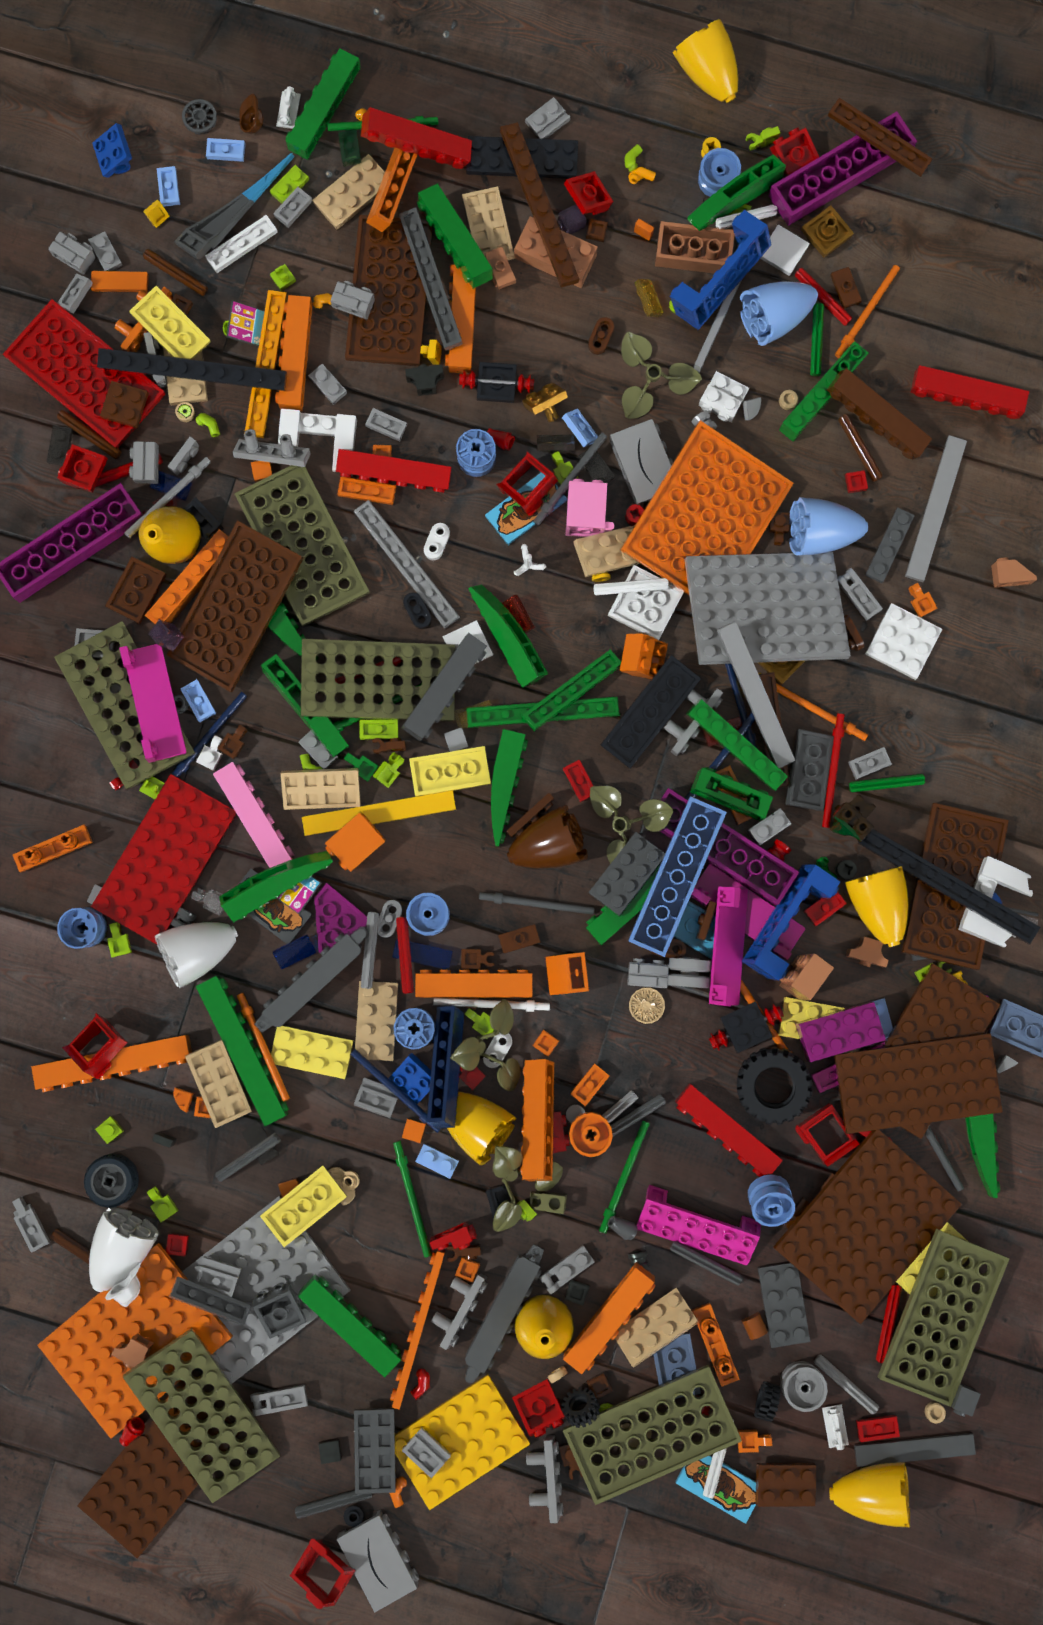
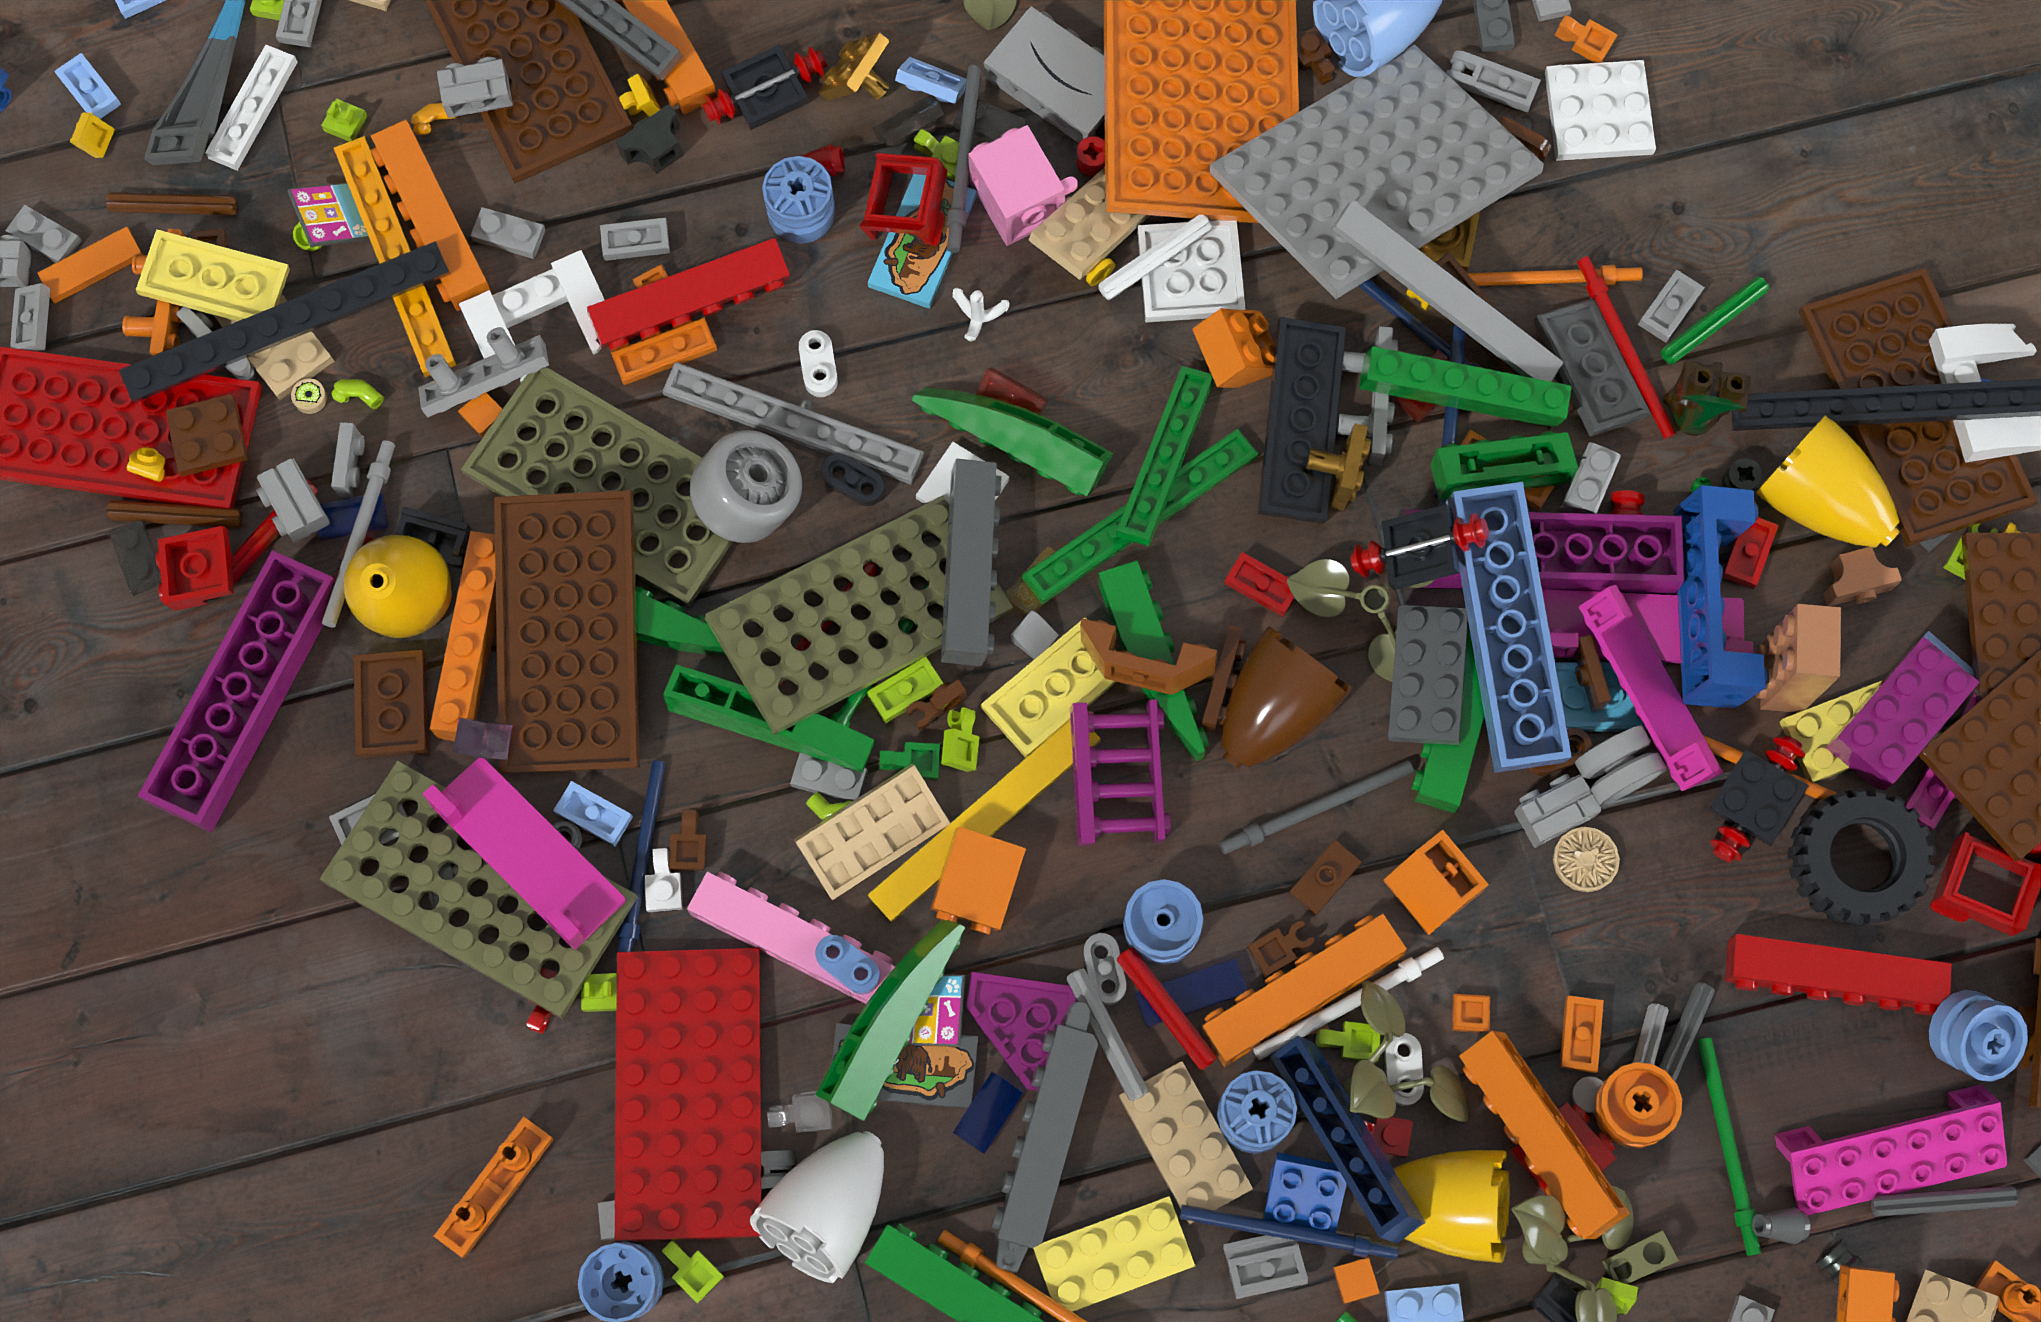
camera: 30 degrees left, 10 degrees down
(88, 402) = (147, 463): none -> yellow plate
(269, 845) = (846, 964): none -> medium blue plate
(348, 588) = (746, 486): none -> light grey wheel
(442, 815) = (1090, 791): none -> magenta fence
(516, 802) = (1193, 664): none -> dark orange slope
(653, 747) = (1345, 466): none -> pearl gold plate
(658, 812) = (1420, 546): none -> black plate

